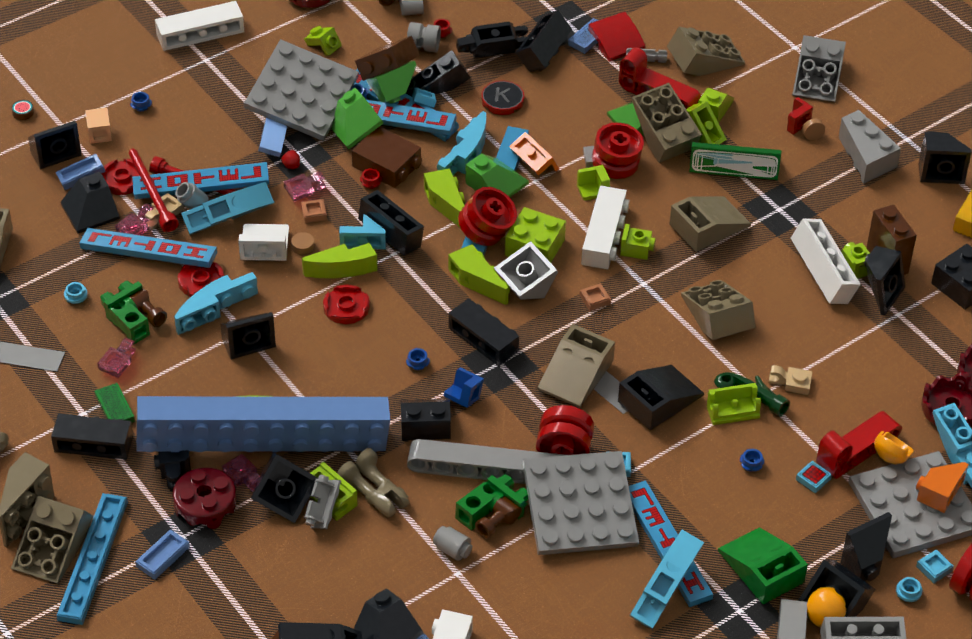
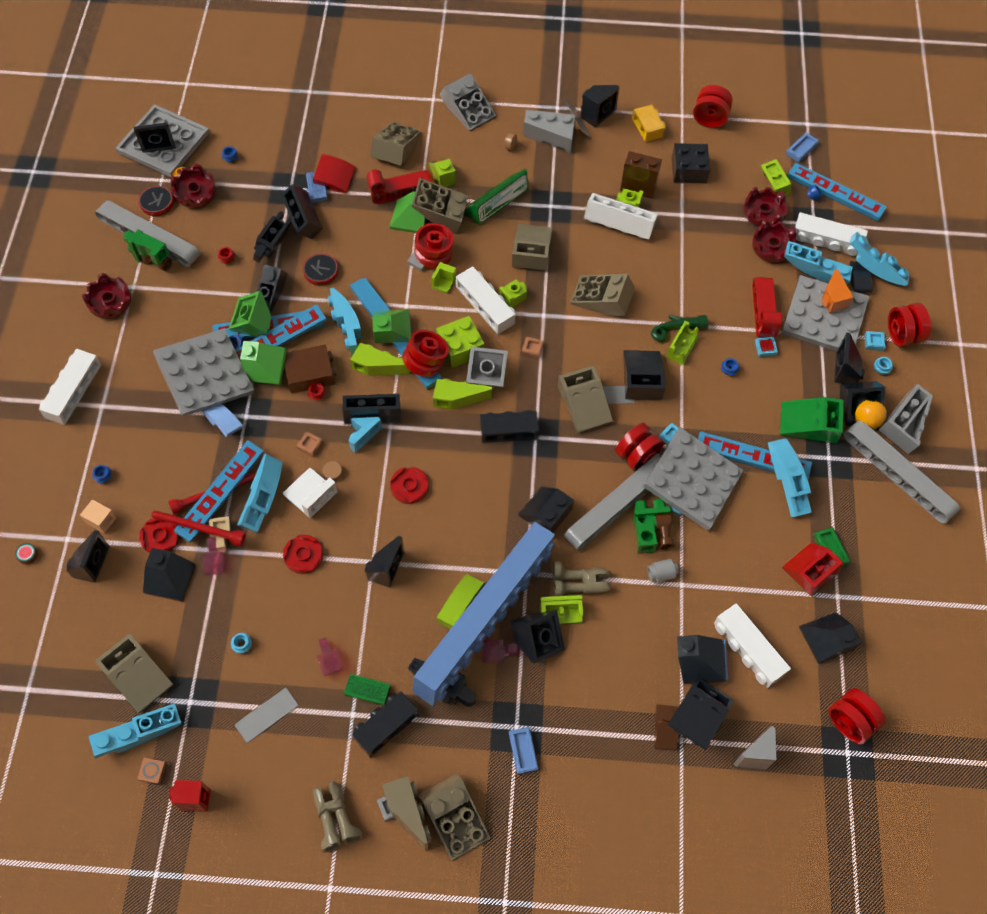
camera: 50 degrees left, 15 degrees up
(69, 175) = (129, 559): medium blue tile -> none
(92, 559) = (489, 799): dark azure tile -> none
(127, 307) = (290, 622): green hips -> none
(148, 247) = (245, 567): dark azure tile -> none
(190, 195) = (231, 507): light grey brick -> none
(206, 509) = (502, 704): dark red plate -> none
(207, 302) = (334, 562): medium azure slope -> none
(291, 159) = (254, 424): red hinge -> none
(303, 186) = (284, 435): clear pink plate -> none
(320, 513) = (574, 621): light grey hinge -> none
(325, 37) = (163, 324): lime bracket -> none
(340, 262) = (374, 461): lime slope -> none
(387, 58) = (231, 304): reddish brown brick -> none
(417, 359) = (495, 475): blue plate -> none
(424, 97) = (279, 309): medium azure tile -> none
(425, 37) = (226, 270): light grey wheel -> none
(465, 389) = (545, 471): blue panel -> none
(533, 154) = (390, 290): panel -> none
(653, 55) = (362, 173): light grey axle -> none
(706, 123) = (454, 183): lime slope -> none
(794, 379) = (688, 300): tan plate -> none
(799, 115) = (493, 136): red bracket -> none
(885, 276) = (660, 198): black slope -> none
(891, 448) = (788, 294): light orange hair -> none
(908, 159) = (578, 119): none -> light grey sticker

